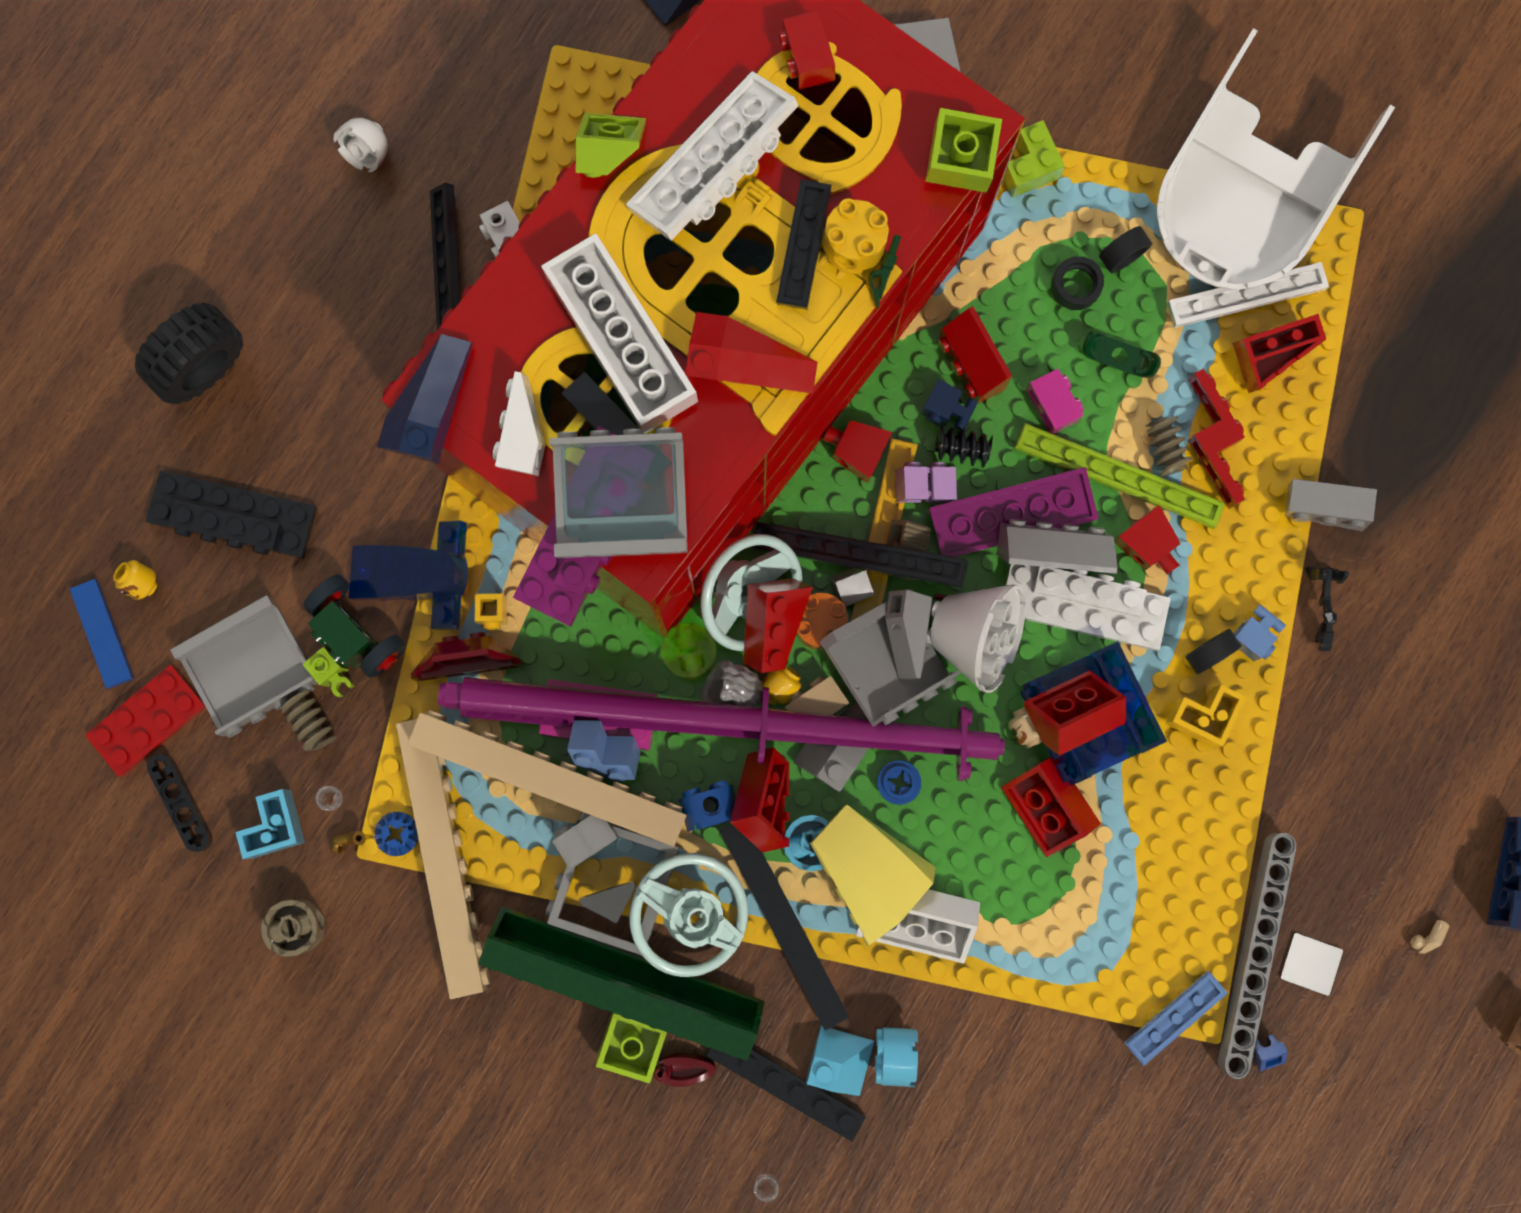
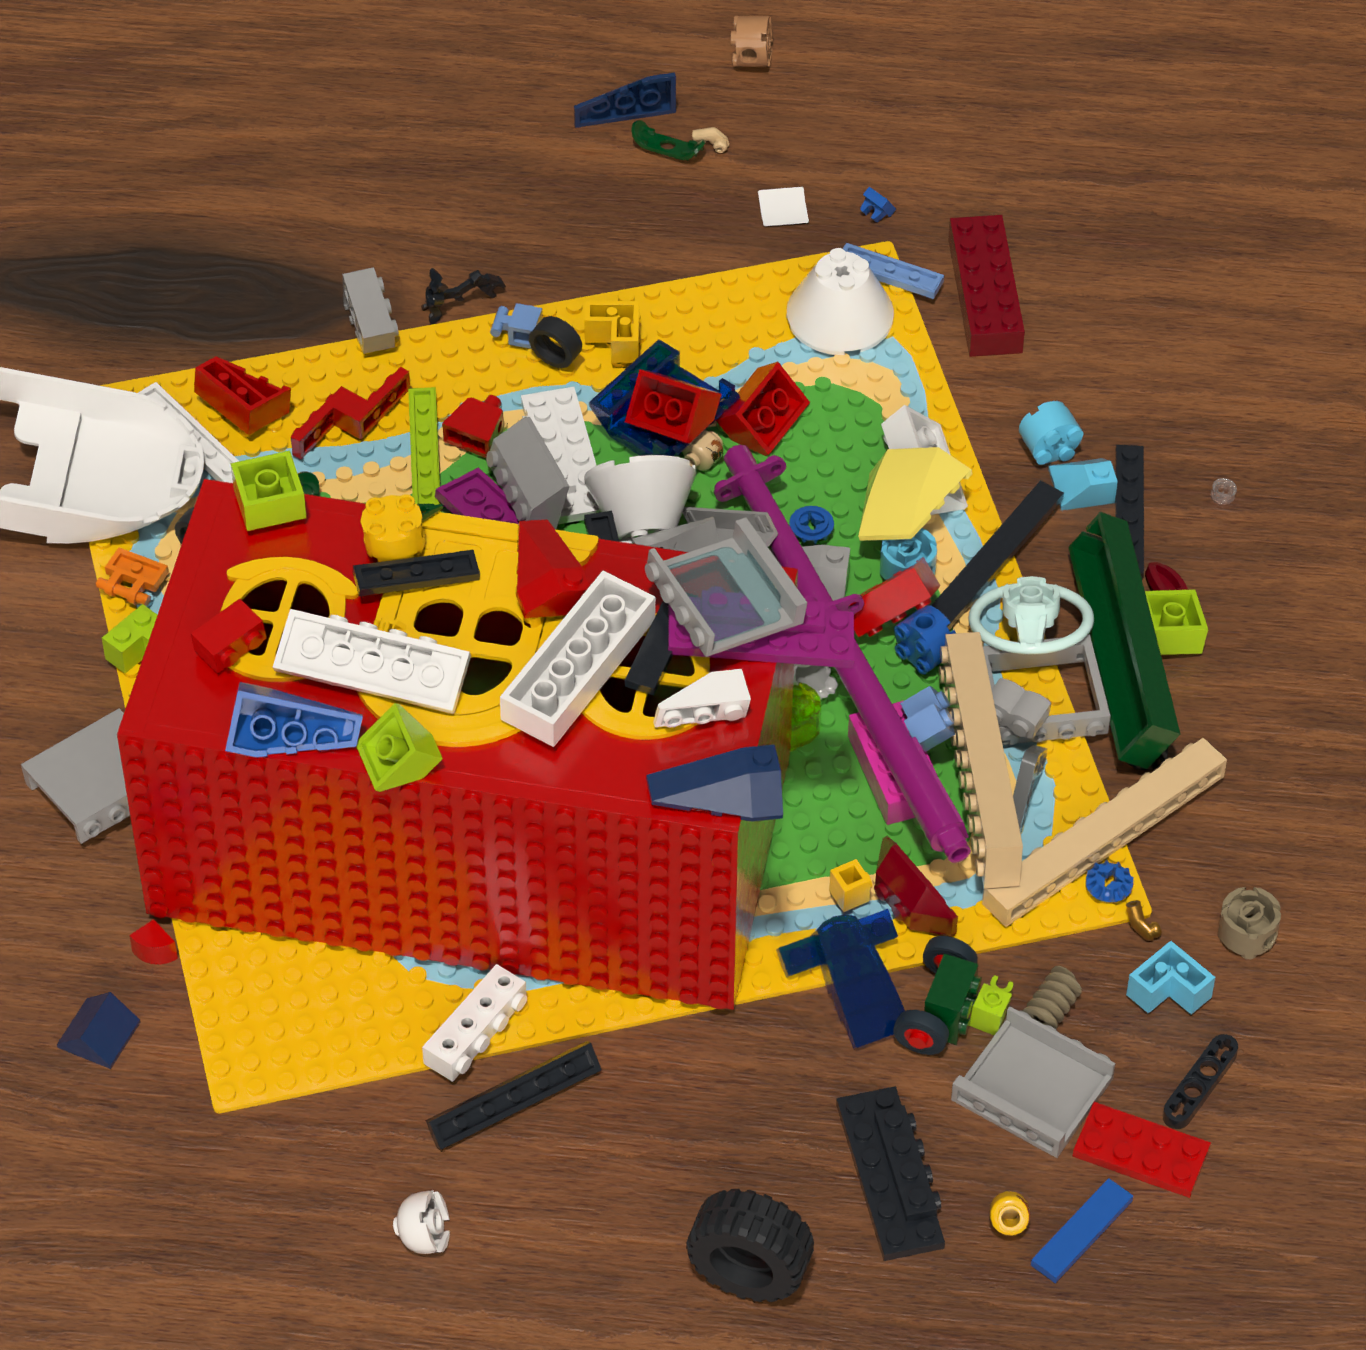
camera: 115 degrees left, 30 degrees down
(320, 798) = (1113, 950): clear bush -> none
(515, 814) = (1030, 768): none -> dark grey beam
(610, 901) = (1055, 668): dark grey slope -> none
(700, 45) = (280, 722): none -> blue wedge
(1115, 190) = (134, 569): none -> orange plate
(1116, 1102) = (986, 285): none -> dark red brick
(1144, 943) = (840, 306): none -> white cone
(1168, 446) = (376, 441): dark tan piece -> none
(1247, 965) = (798, 238): light grey beam -> none
(1455, 878) = (651, 141): none -> dark green piece

